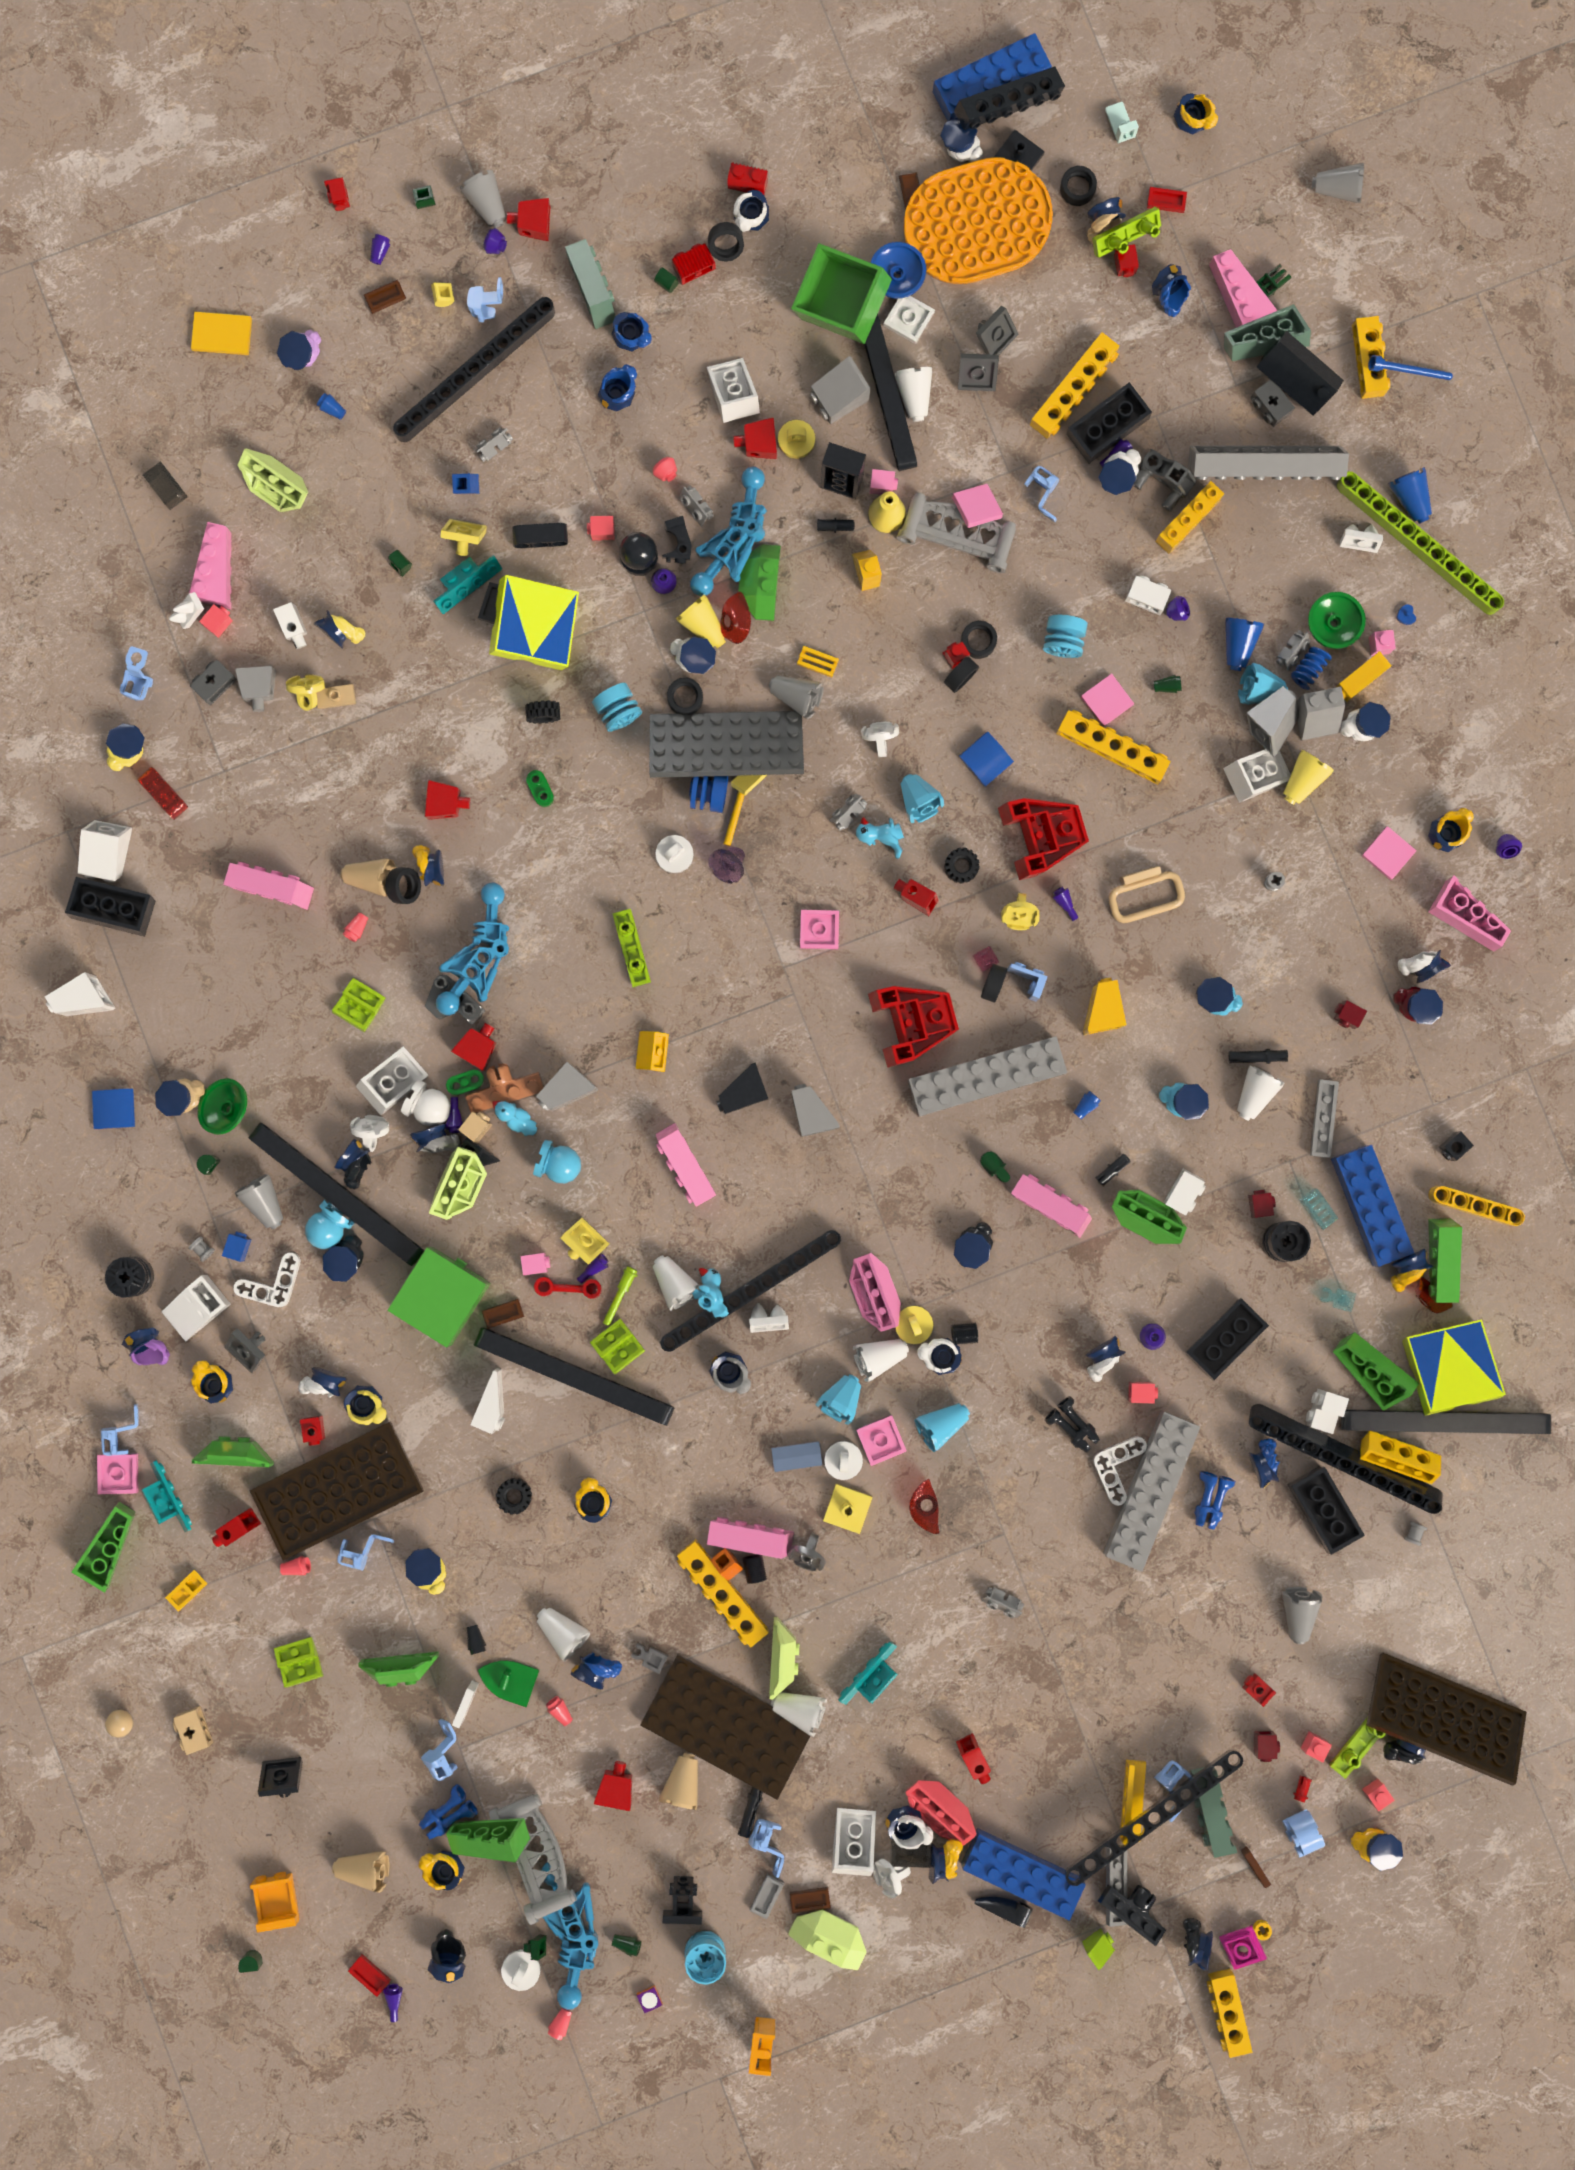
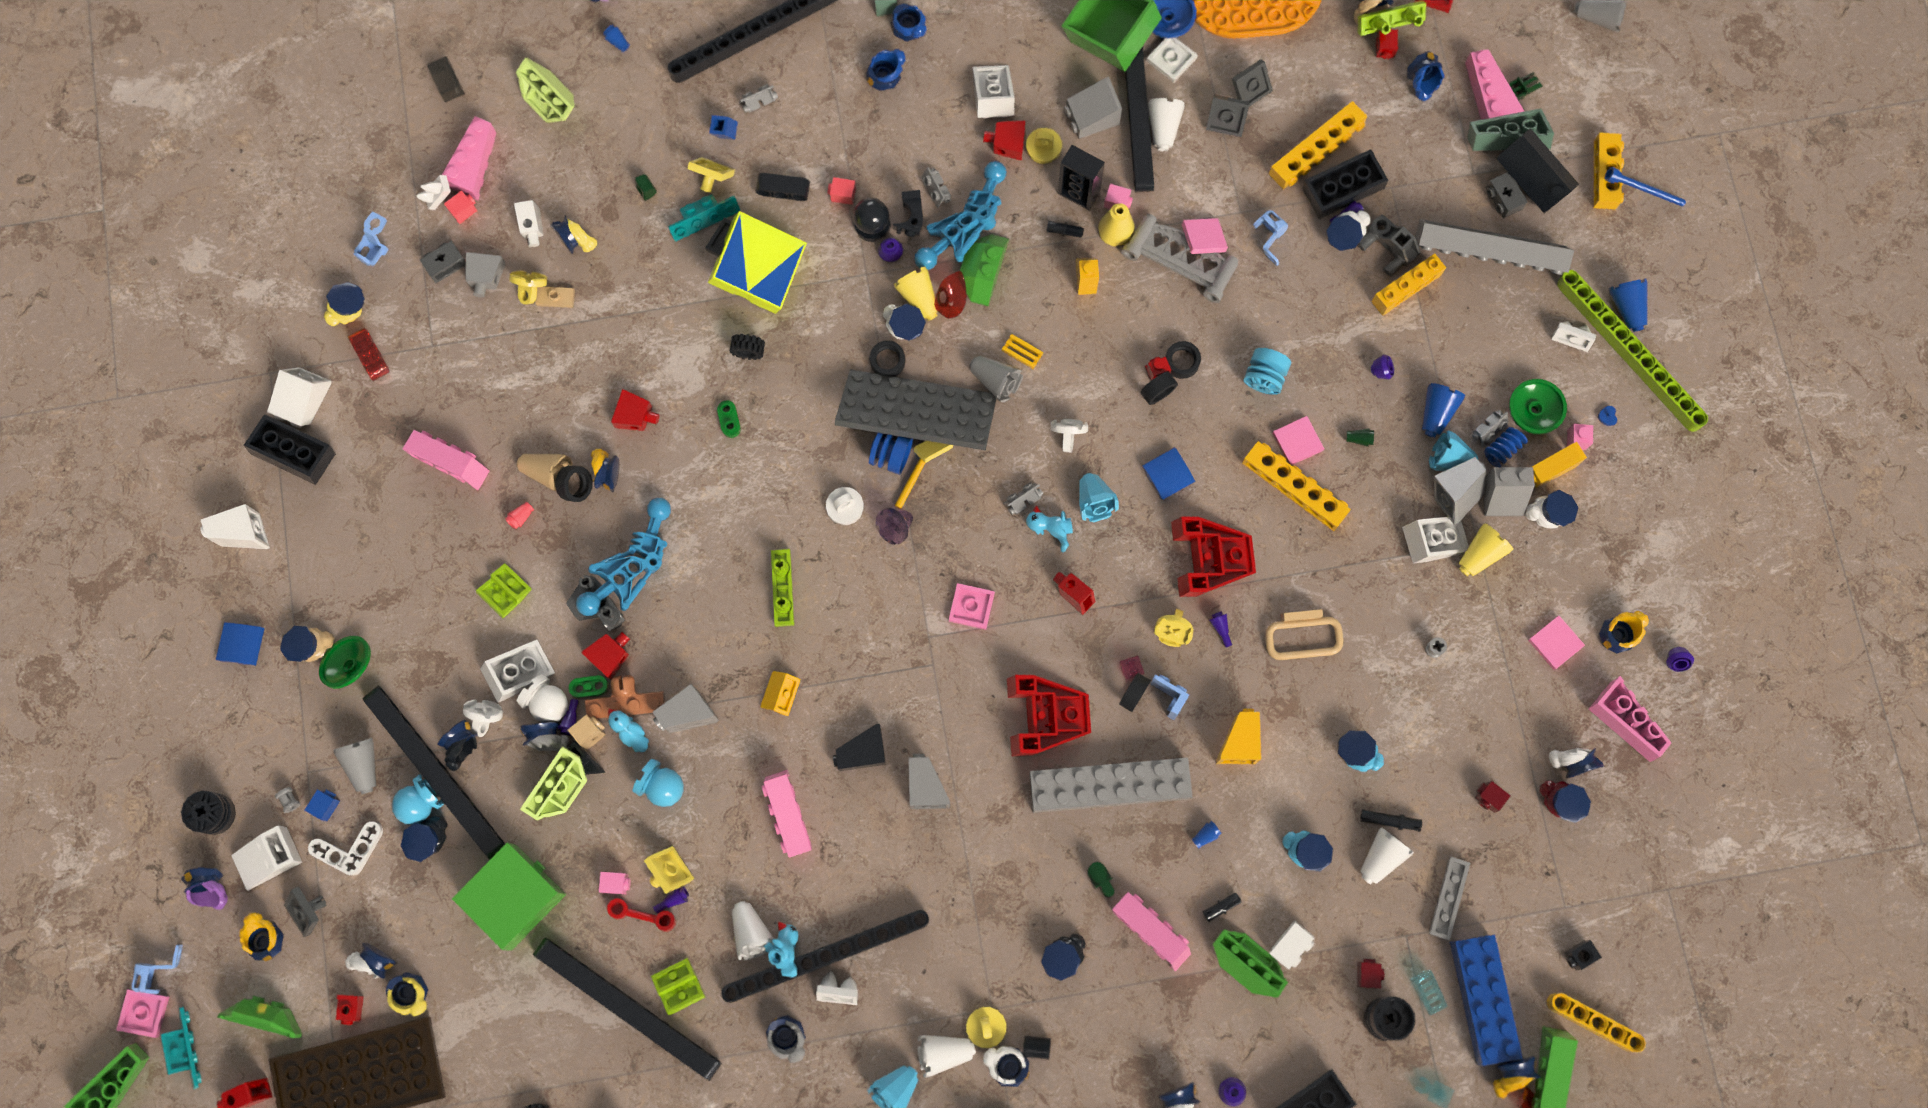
camera: 20 degrees right, 10 degrees down
(207, 1164) = (315, 716): dark green brick -> none
(491, 1407) = (534, 1021): white slope -> none
(502, 1313) = (570, 928): reddish brown tile -> none
(615, 704) = (819, 355): medium azure wheel -> none
(624, 1285) = (698, 925): lime pin -> none
(665, 469) = (914, 149): coral cone -> none
(875, 1292) = (952, 984): bright pink wedge -> none
(958, 876) = (1129, 560): black tyre -> none
(1148, 595) = (1355, 348): white brick -> none

